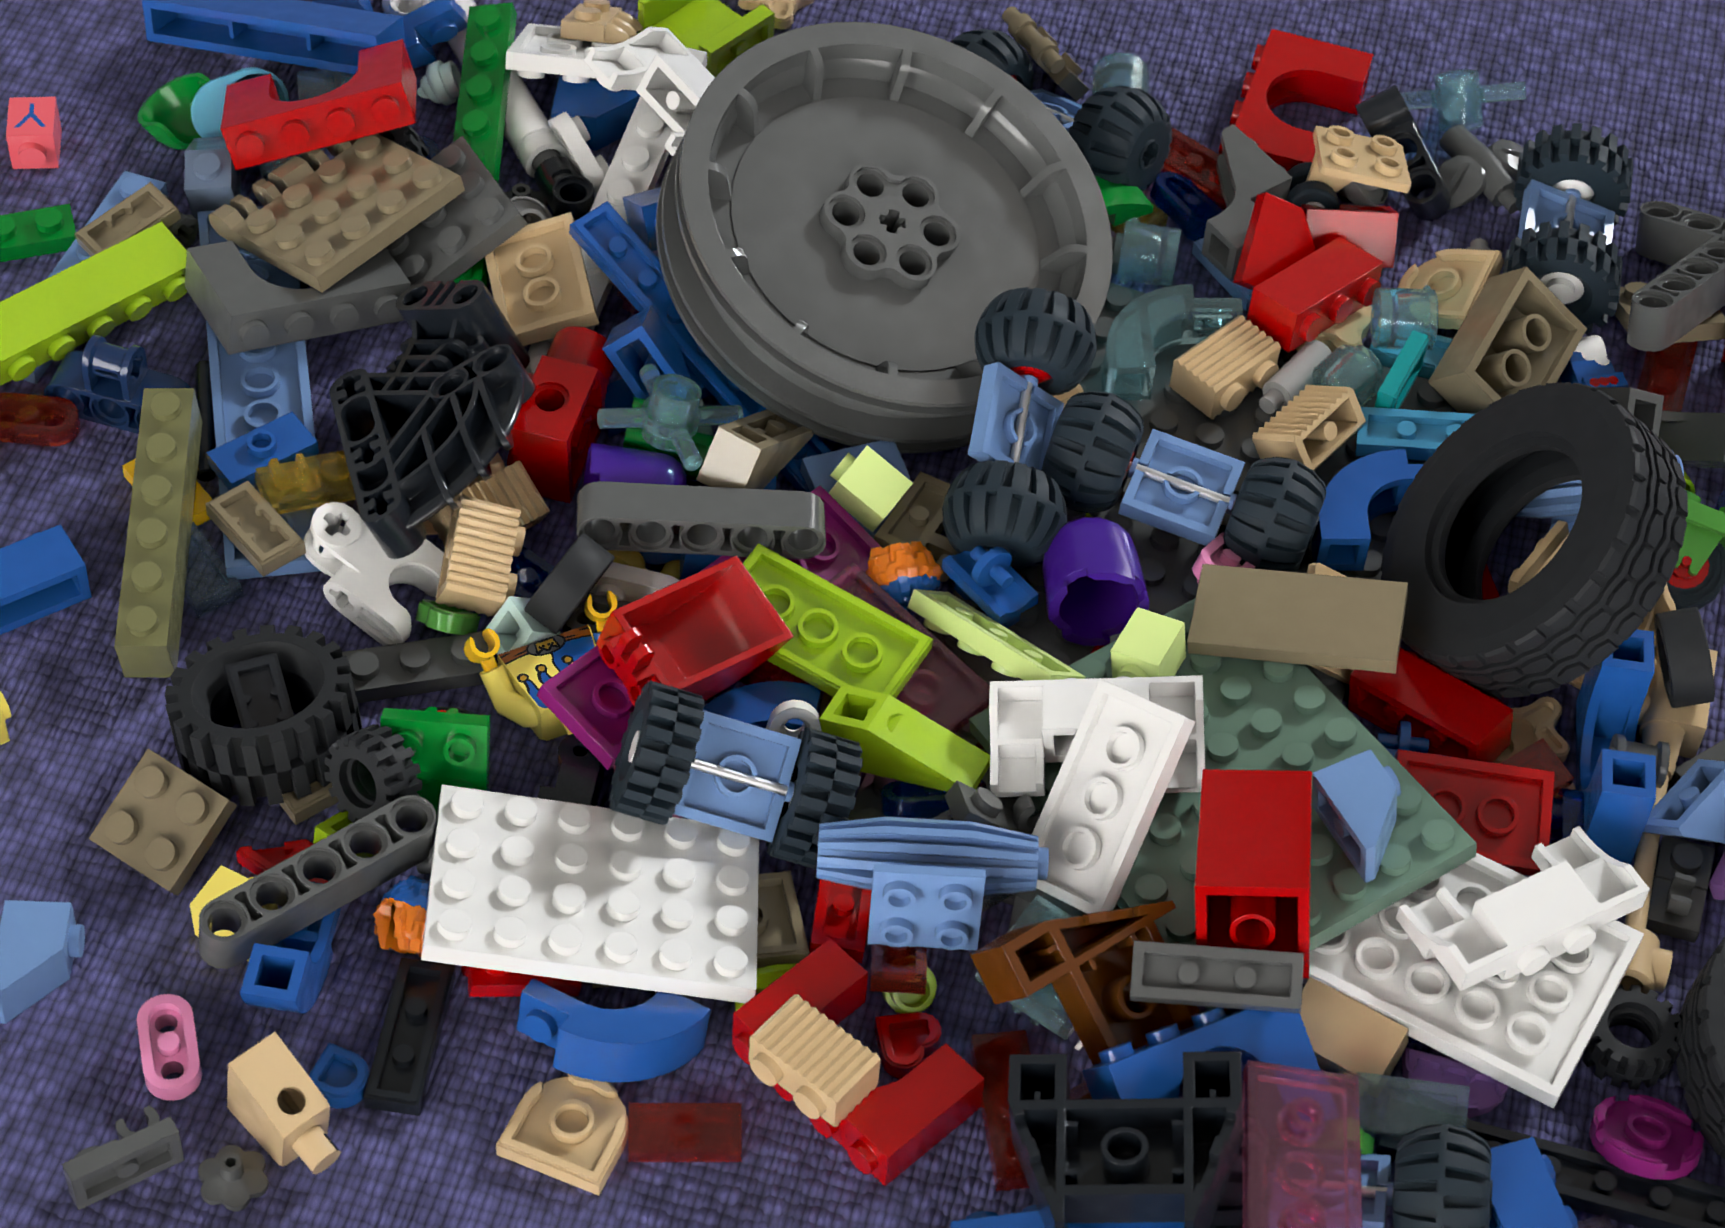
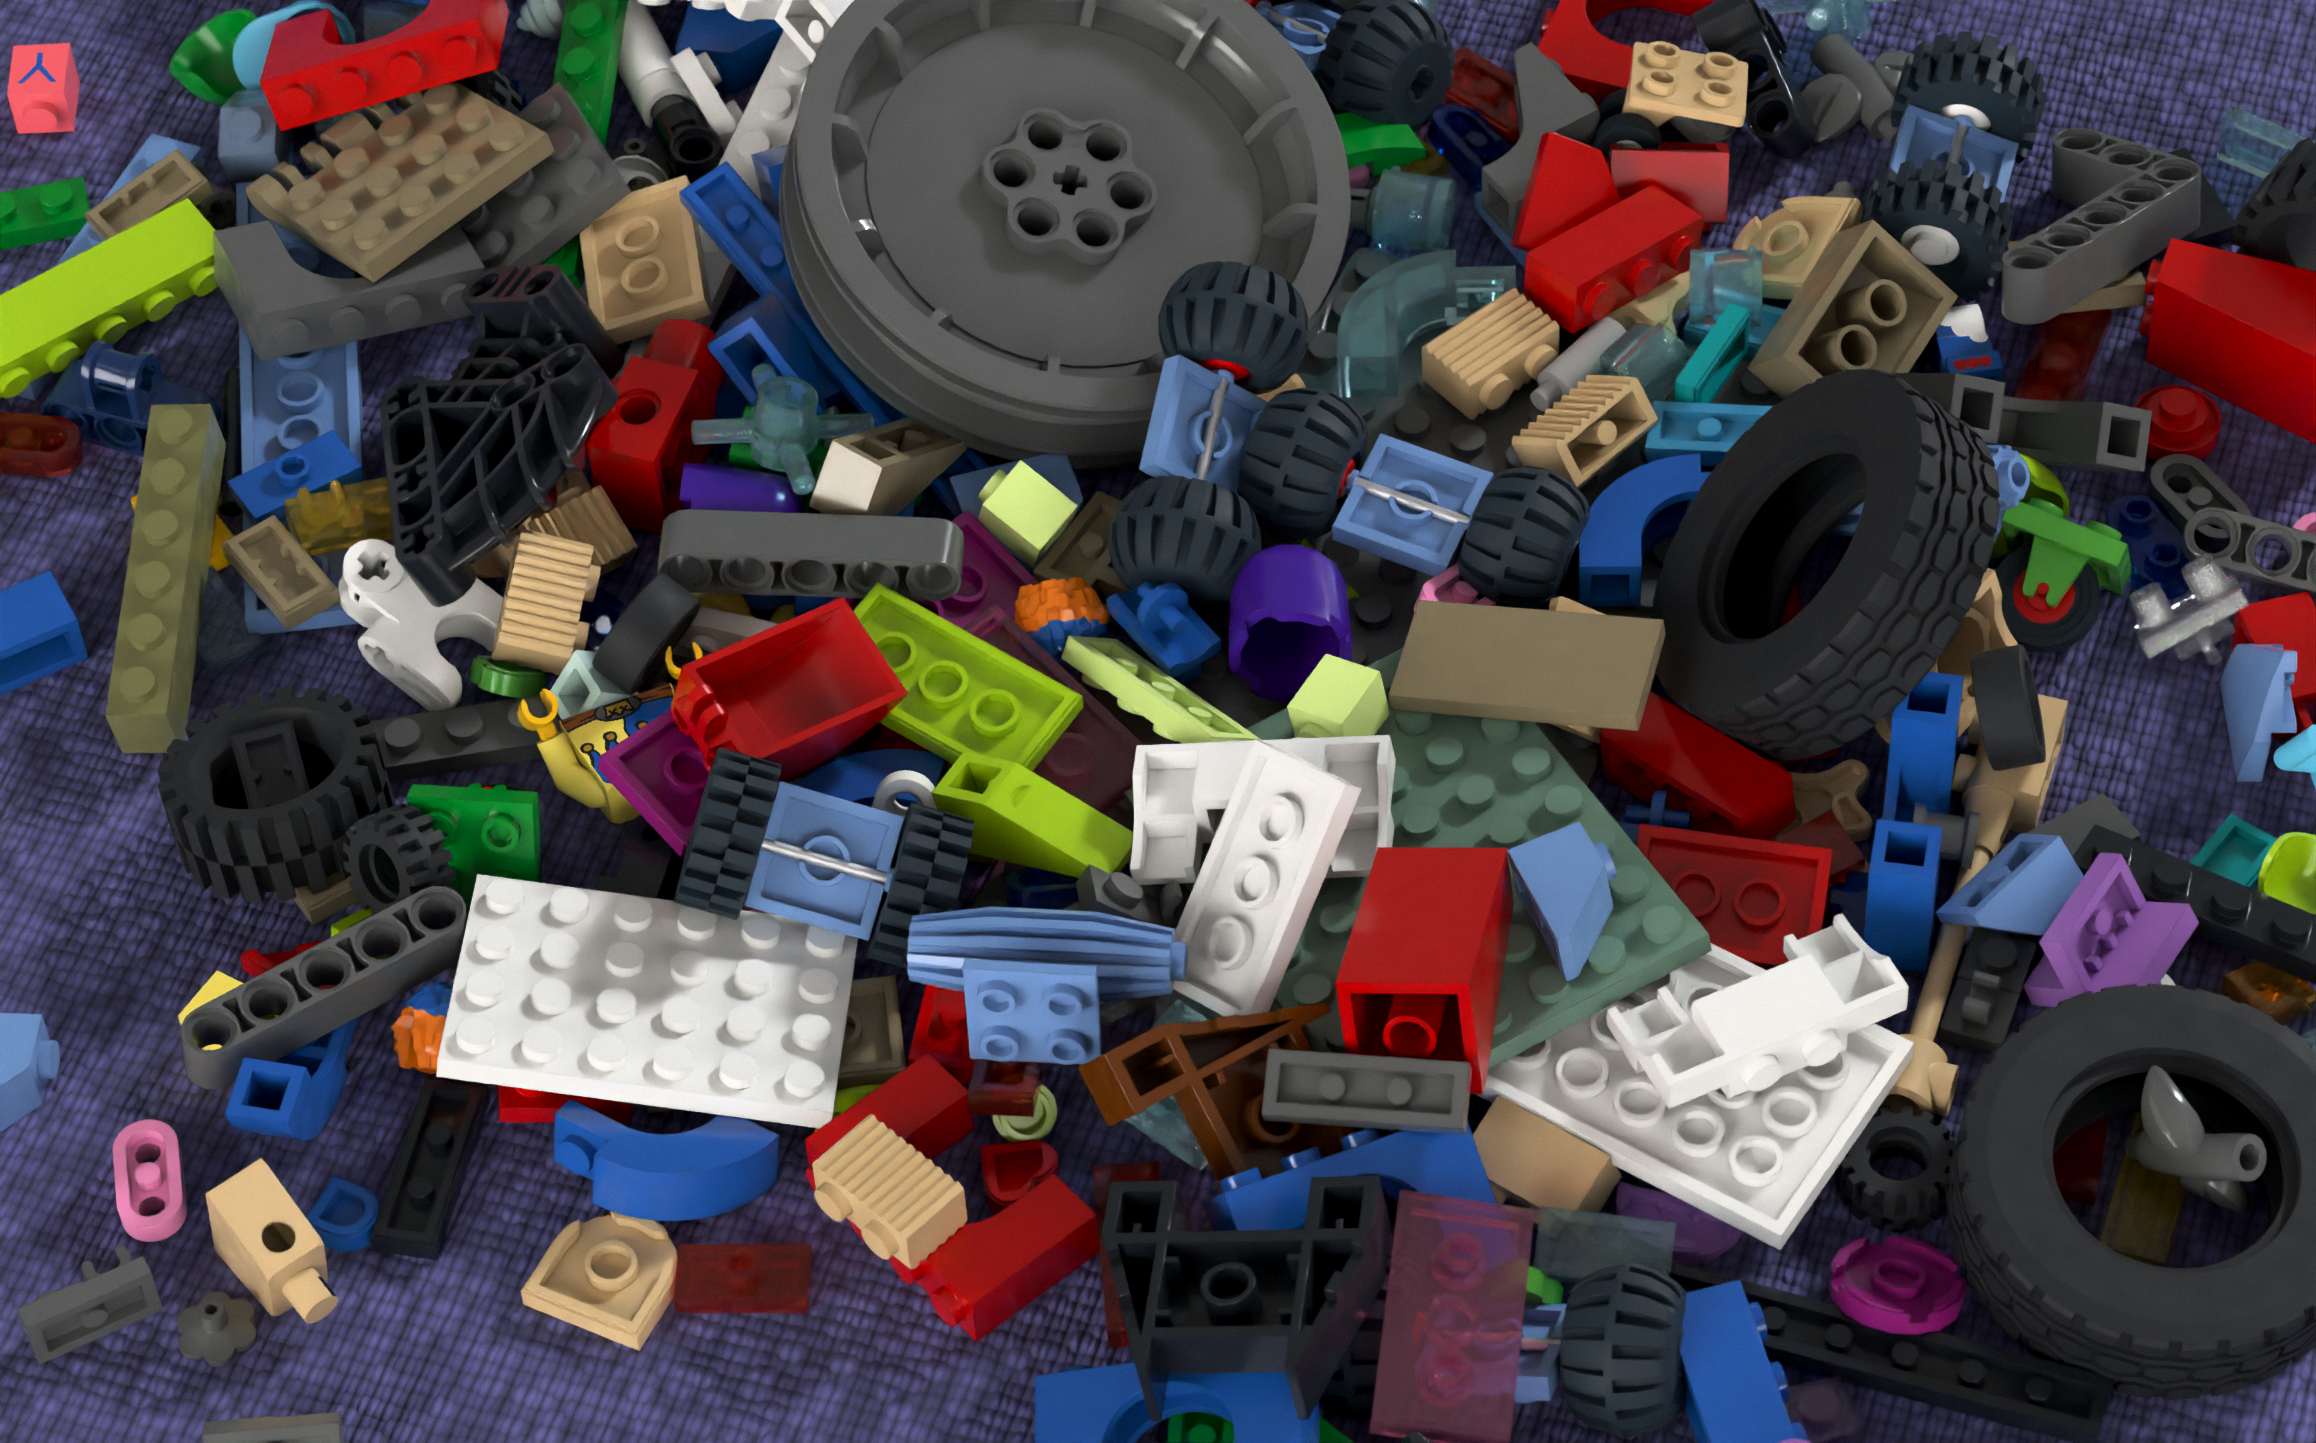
camera: 10 degrees right, 0 degrees up
(162, 822) = (154, 921): dark tan plate -> none

